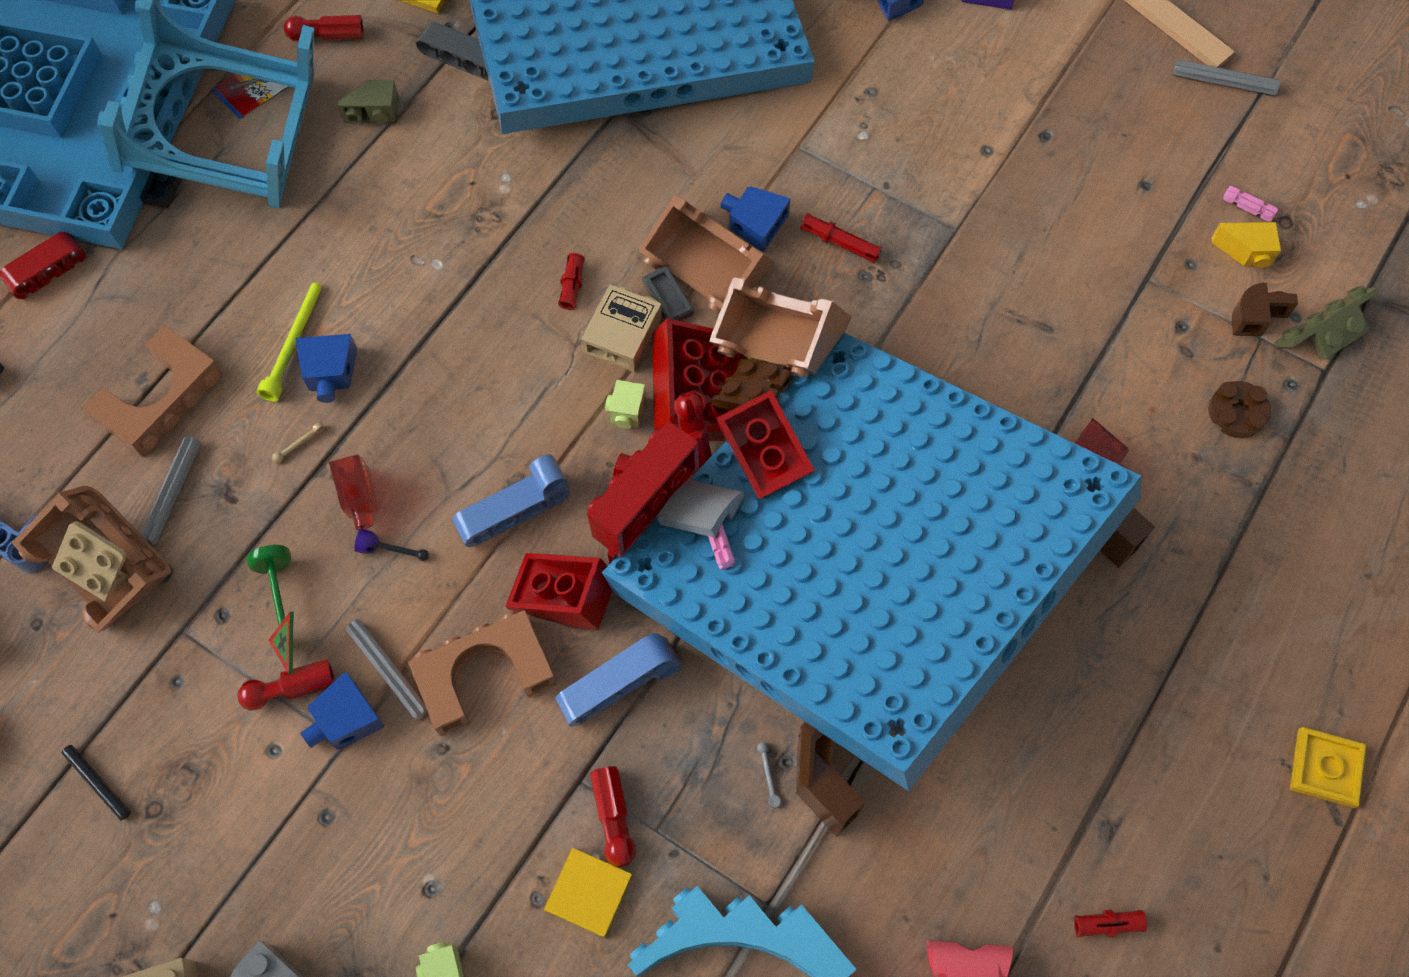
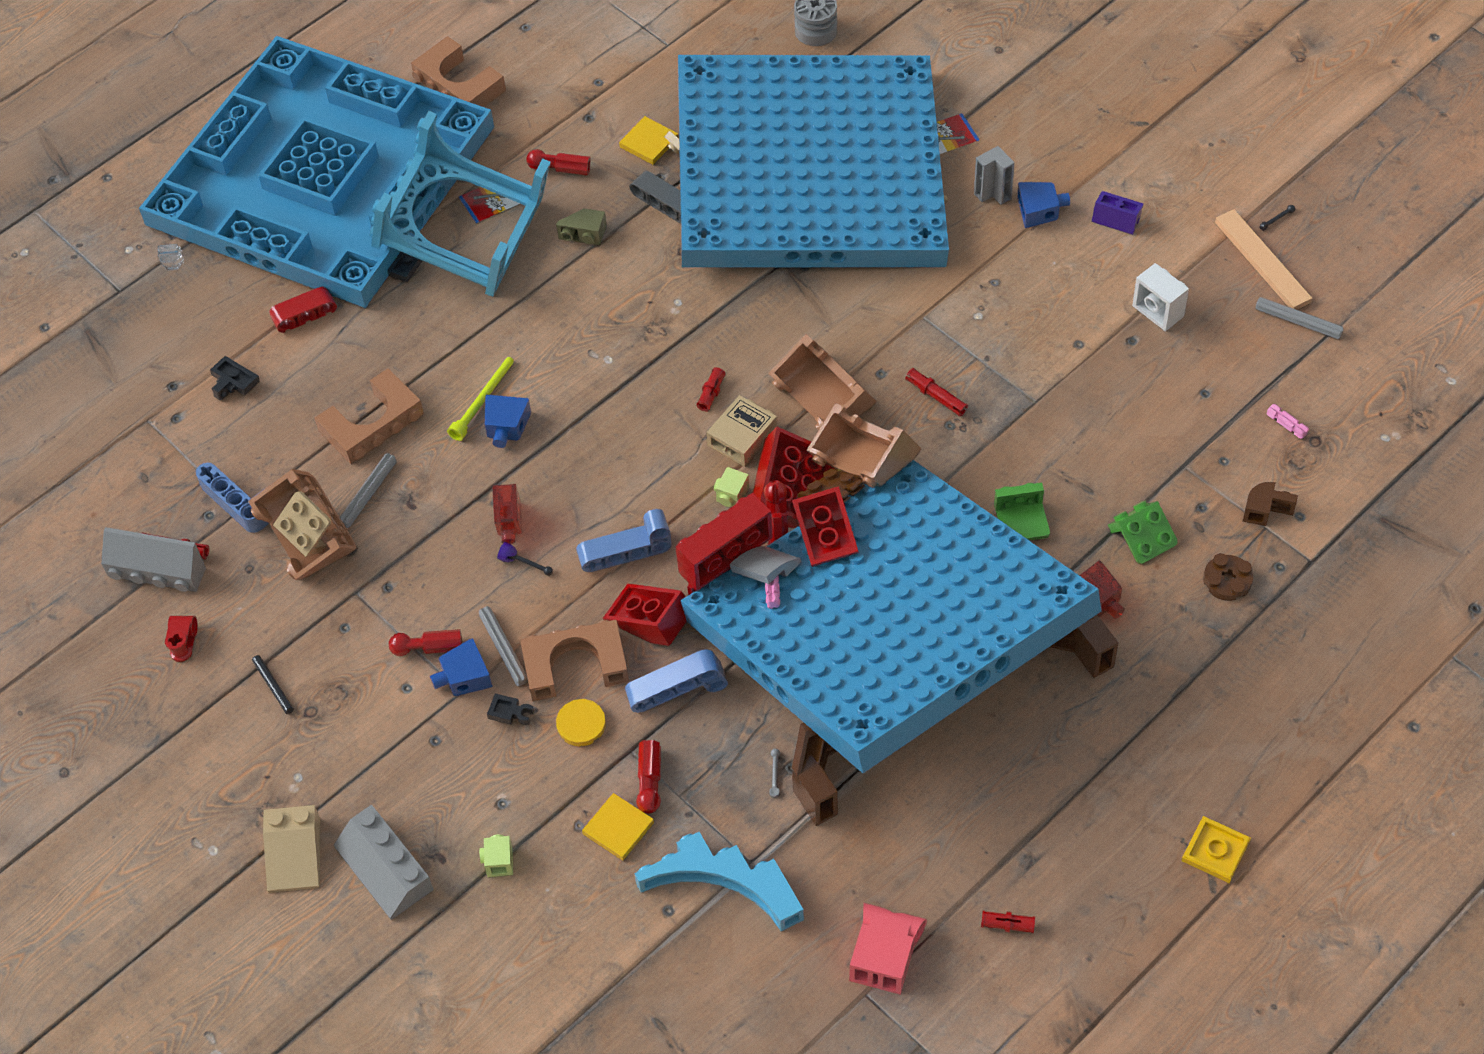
camera: 15 degrees right, 10 degrees down
(270, 560) = (431, 552): green piece -> none
(278, 457) = (487, 466): tan hinge -> none
(409, 756) = (506, 709): none -> black plate
(508, 755) = (580, 722): none -> yellow tile
(666, 291) = (786, 411): dark grey tile -> none
(756, 215) = (872, 363): blue torso -> none
(982, 370) = (1023, 510): none -> bright green bracket
(1070, 78) = (1160, 296): none -> white brick
(1130, 368) = (1145, 530): none -> bright green bracket
(1249, 242) = (1274, 450): yellow slope -> none
(1333, 327) = (1326, 529): olive bracket -> none

